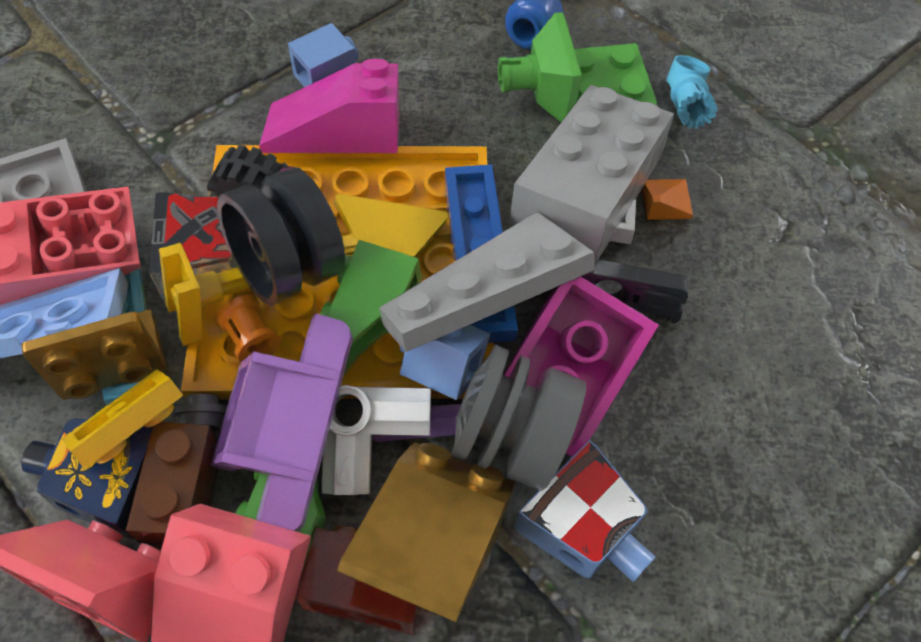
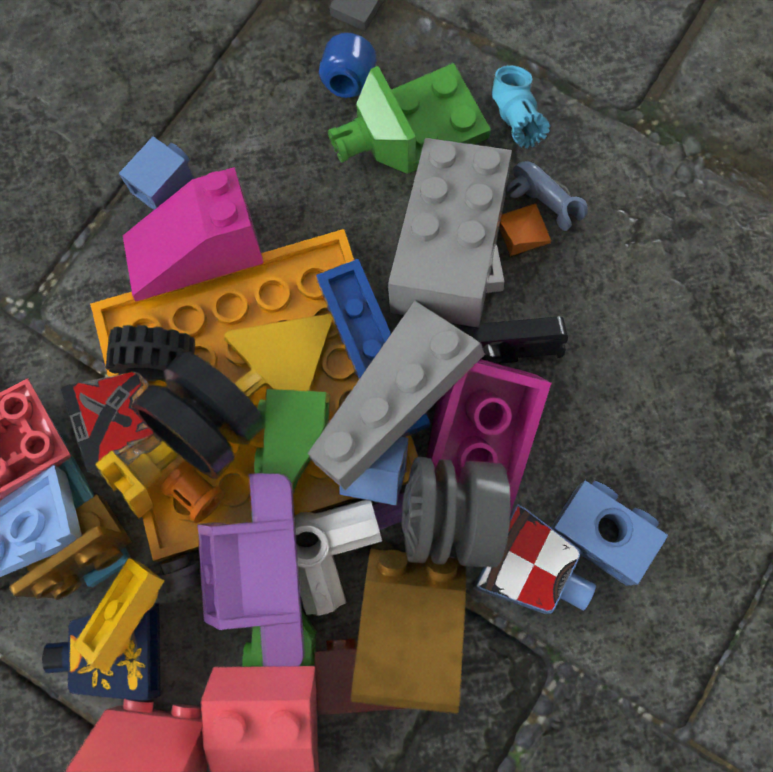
camera: 10 degrees left, 15 degrees up
(172, 478) = (180, 648): reddish brown brick -> none
(686, 536) = (637, 537): none -> medium blue brick
(691, 159) = (539, 185): none -> sand blue piece

